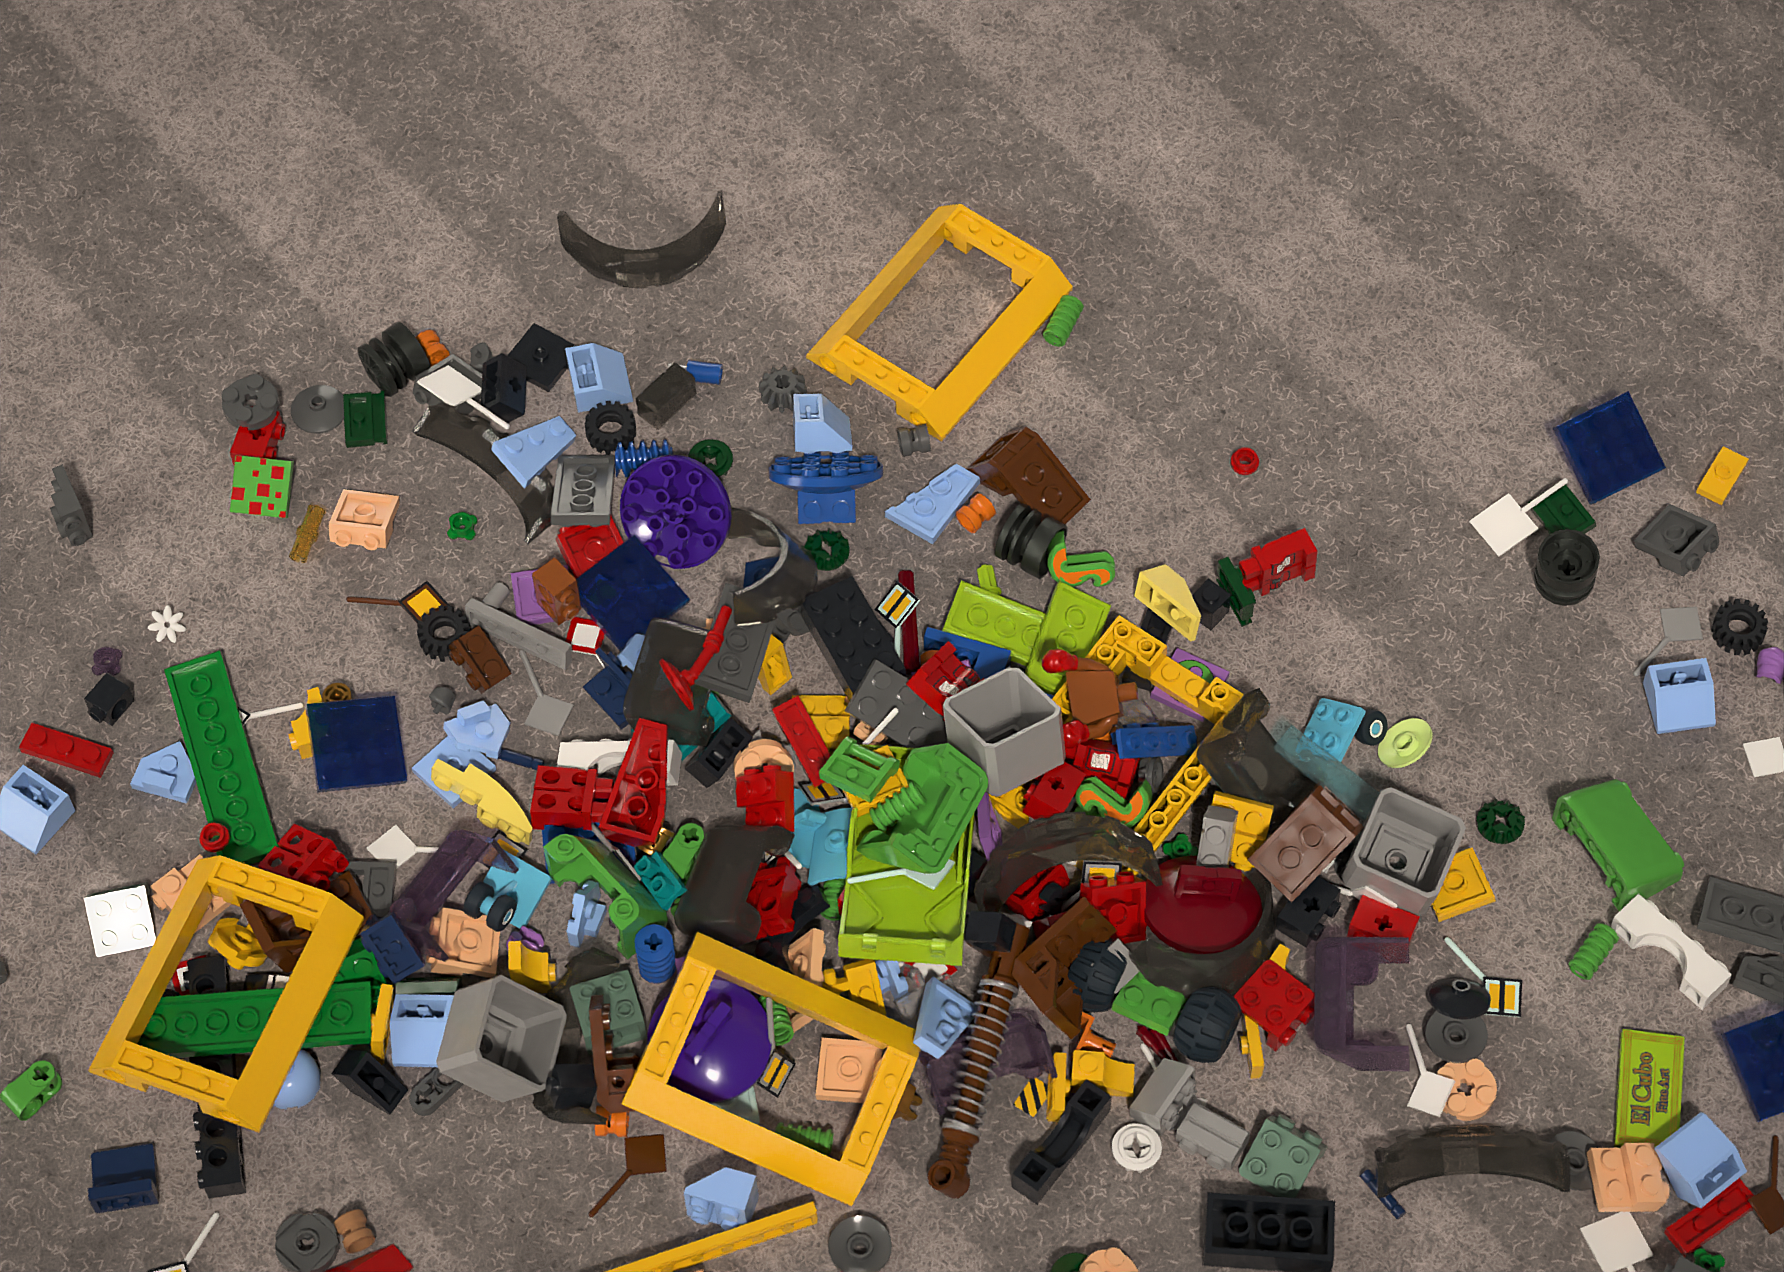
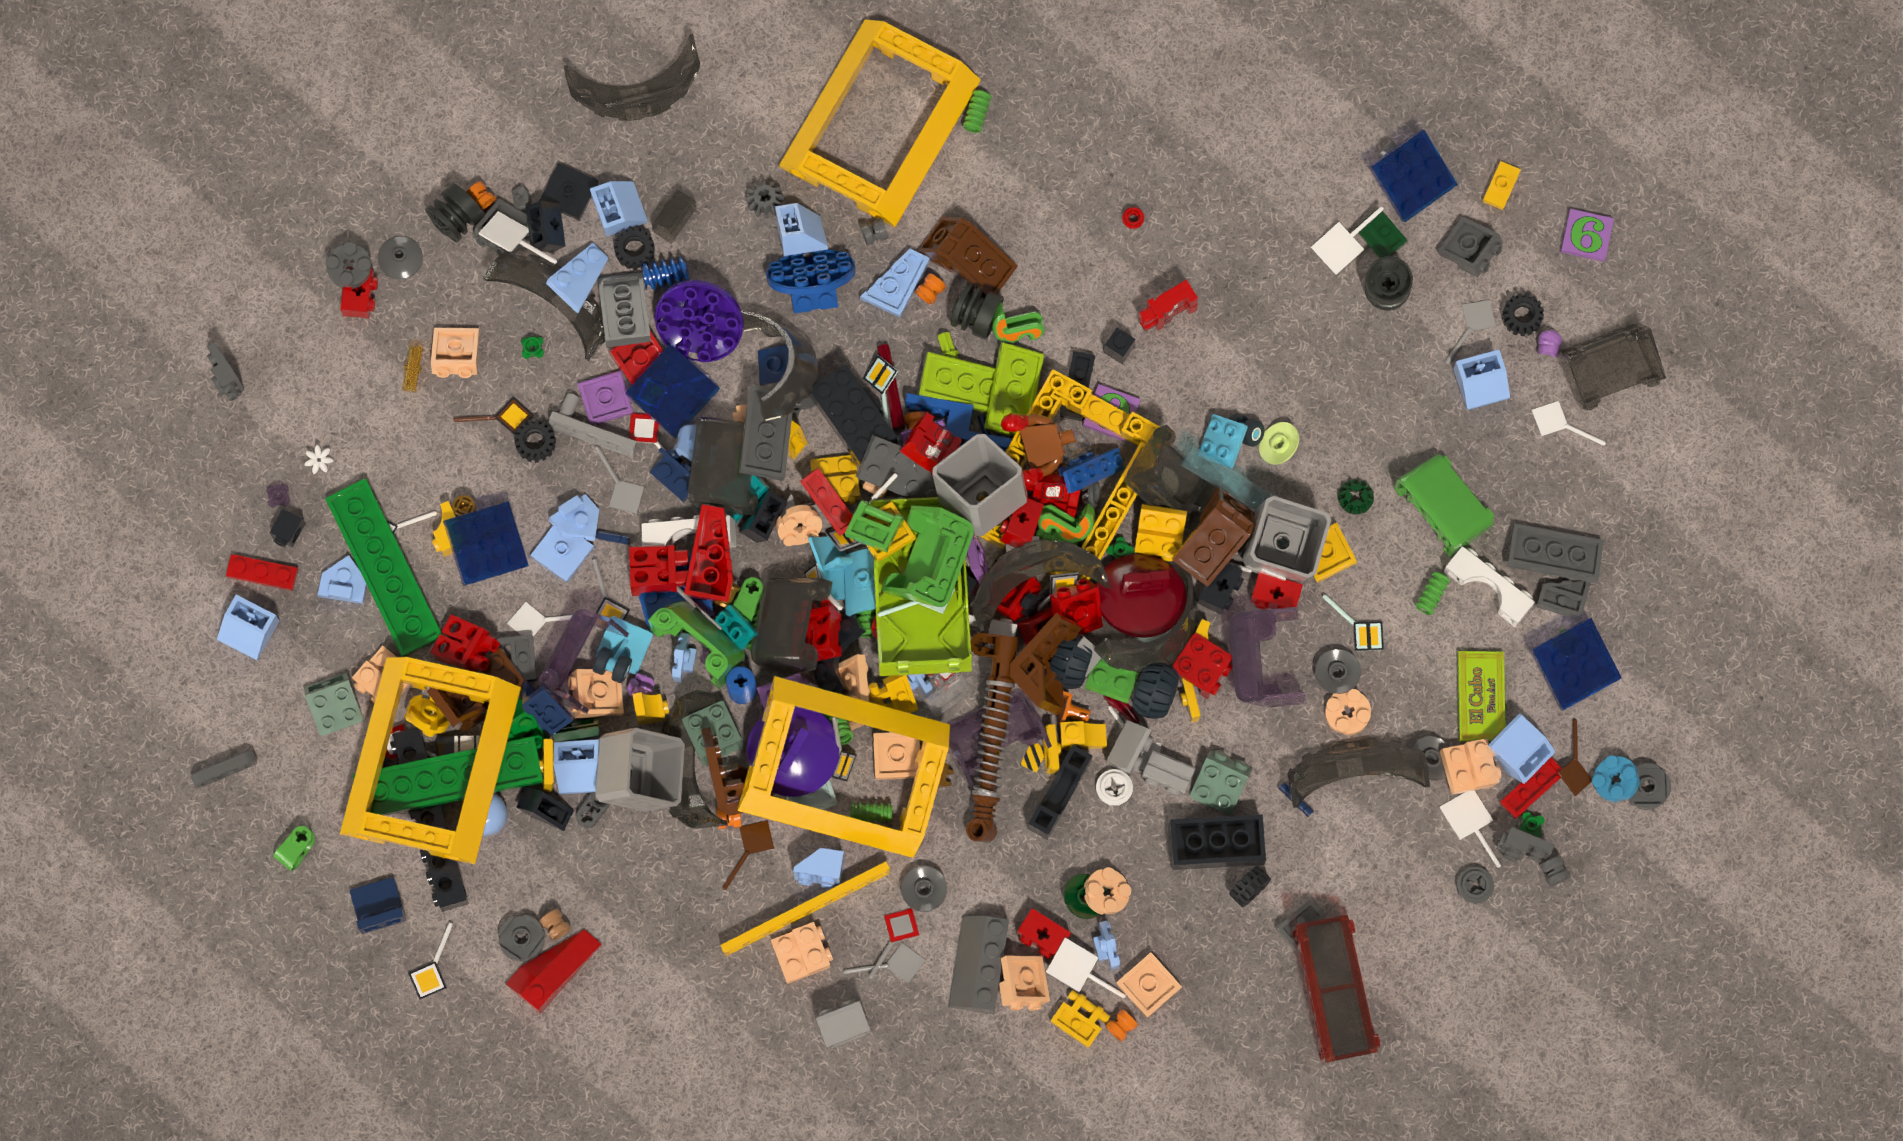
camera: 10 degrees left, 15 degrees up
(209, 832) = (387, 628): red plate -> none
(261, 486) = (370, 334): bright green tile -> none
(365, 419) = (439, 264): dark green plate -> none
(442, 700) = (543, 497): dark grey piece -> none
(479, 660) = (567, 461): reddish brown bracket -> none
(494, 804) = (601, 579): light yellow slope -> none
(556, 591) = (619, 400): dark orange brick -> none
(571, 1086) = (698, 800): black brick -> none
(685, 679) = (734, 473): red dish -> none
(704, 371) = (697, 190): blue piece -> none
(713, 449) = (716, 256): dark green gear -> none
(767, 796) = (807, 554): red plate -> none
(839, 550) = (816, 341): dark green gear -> none
(898, 806) = (907, 552): bright green piece -> none
(941, 1018) = (961, 710): light blue wing -> none
(990, 931) = (989, 645): black brick -> none
(1169, 598) = (1088, 345): light yellow slope -> none
(1217, 837) = (1147, 546): light grey brick -> none
(1242, 599) = (1143, 339): dark green plate -> none
(1431, 1089) = (1323, 716): white piece -> none
(1459, 998) = (1338, 642): black dish -> none

